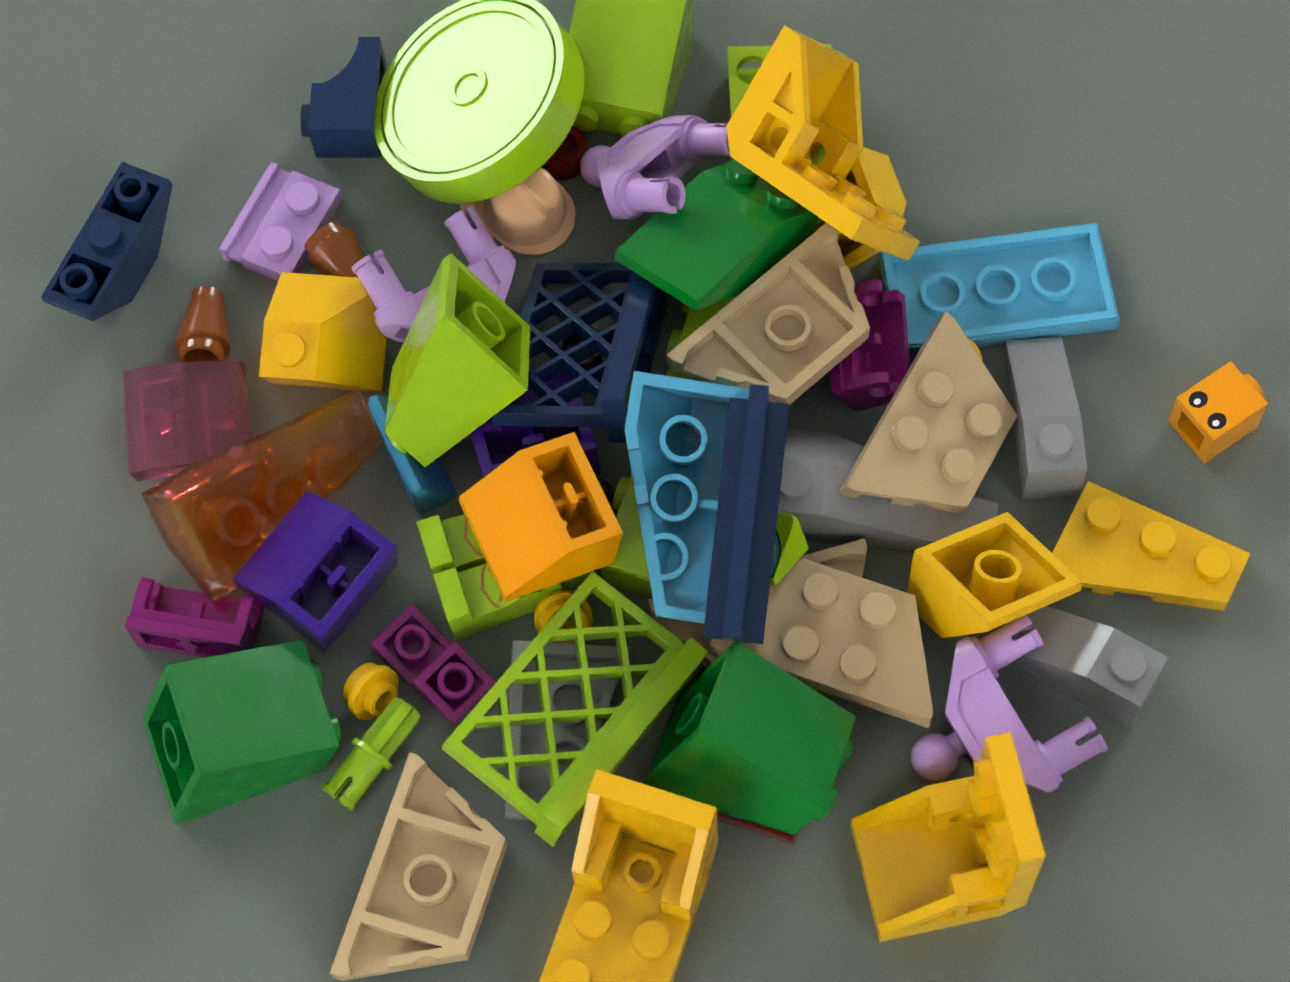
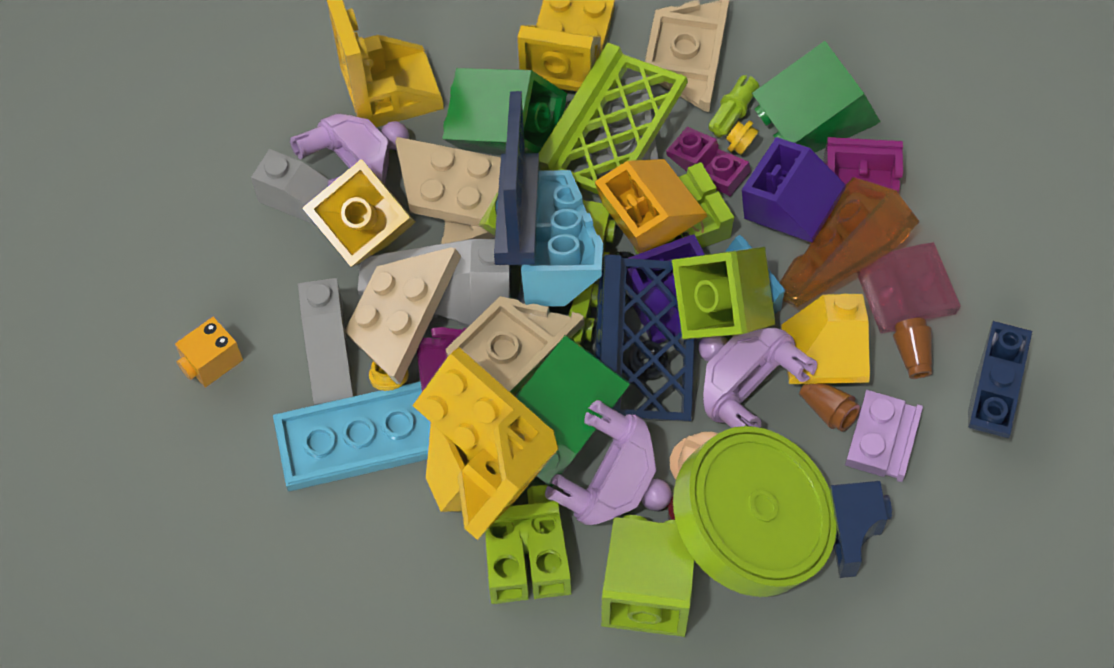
camera: 170 degrees right, 5 degrees down
(1141, 552) = (264, 266): yellow wing -> none

